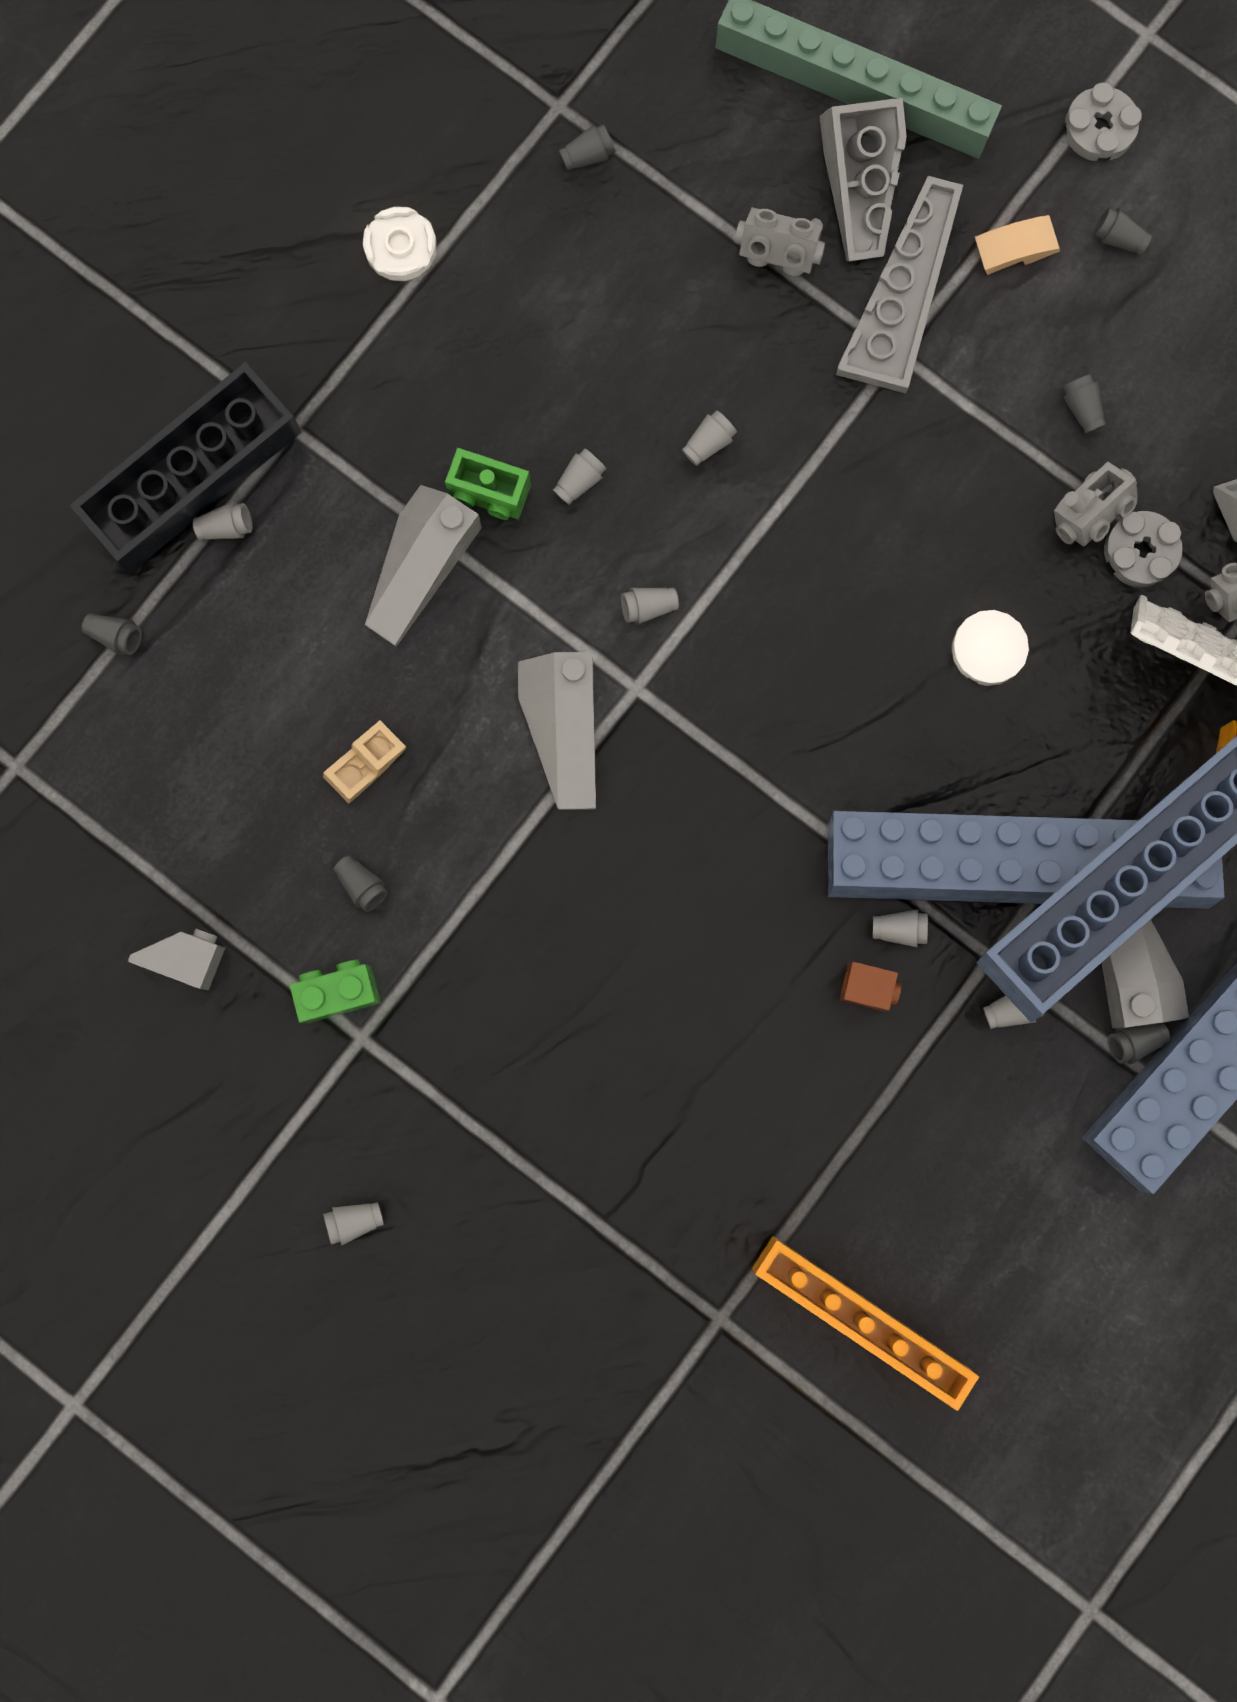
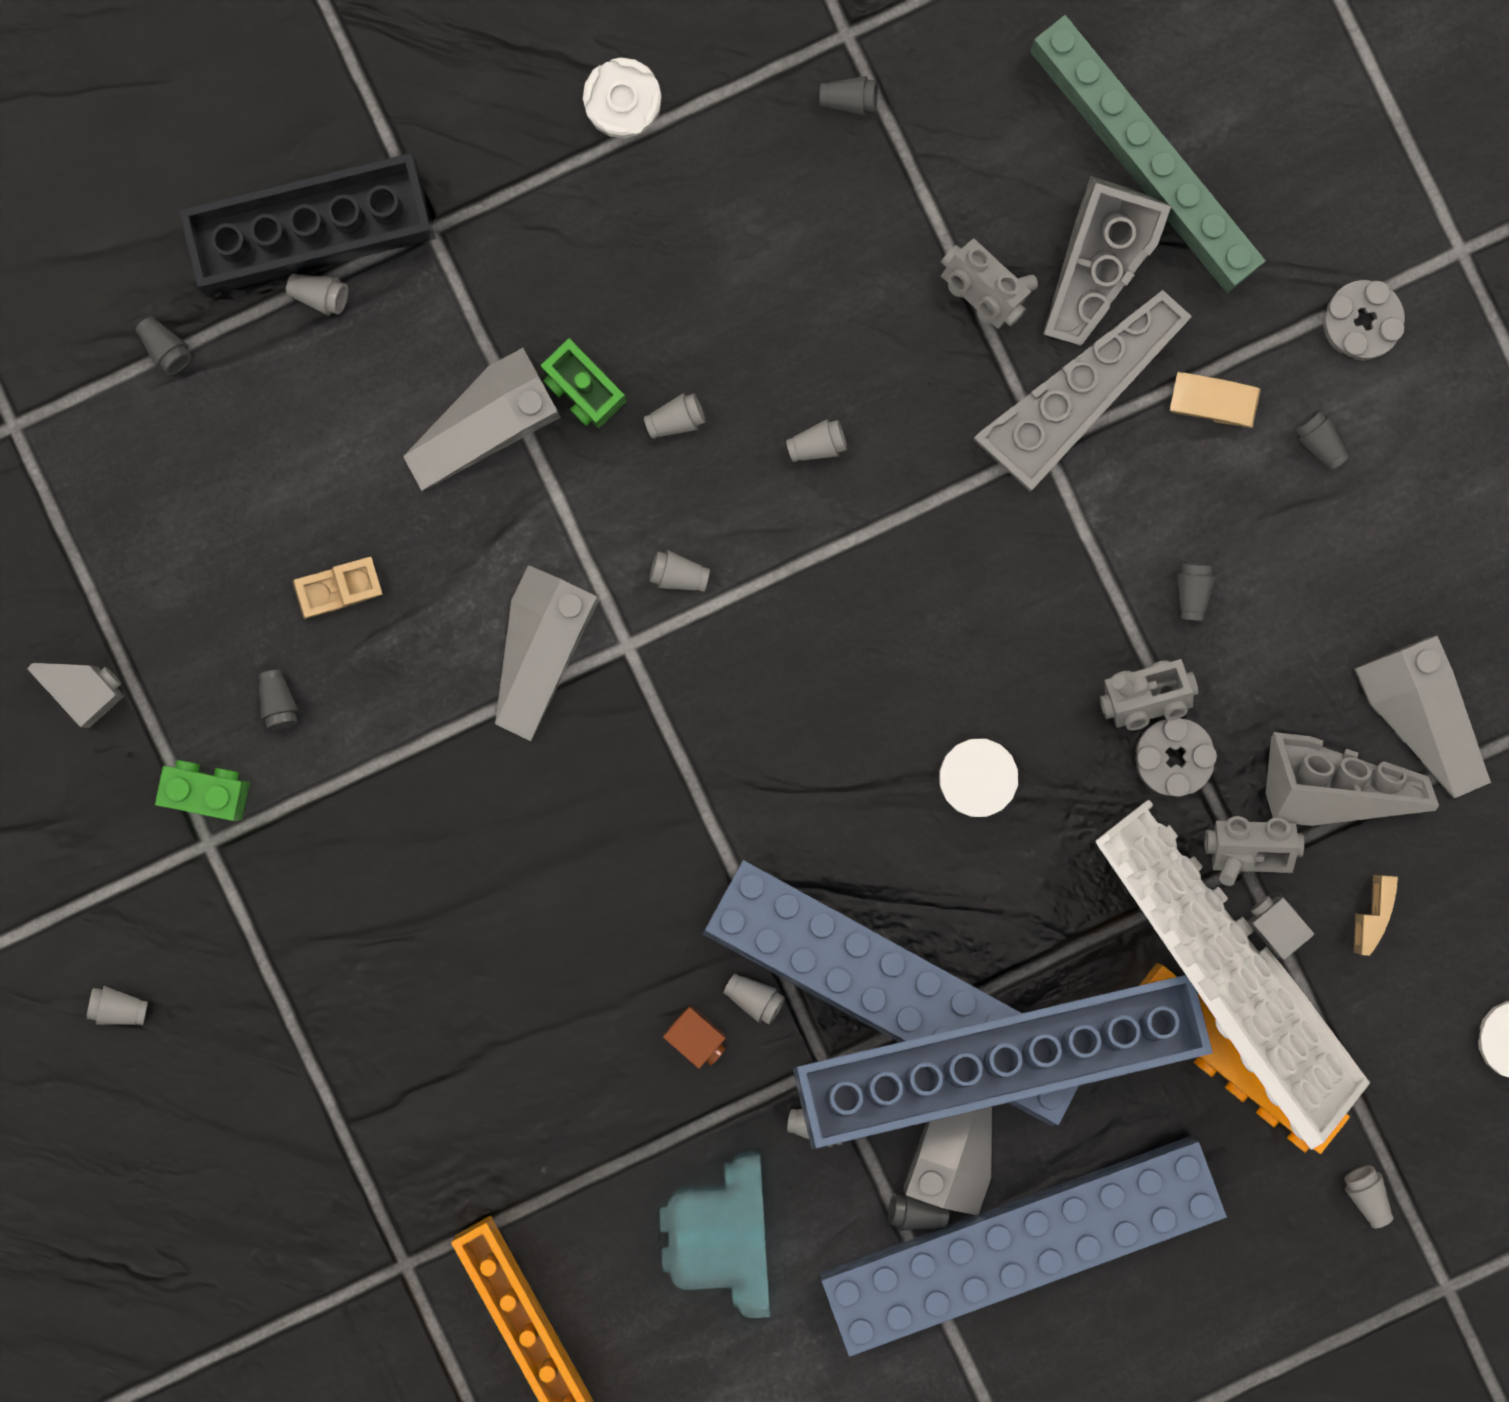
camera: 30 degrees right, 5 degrees up
(983, 1148) = (721, 1236): none -> clear light blue brick

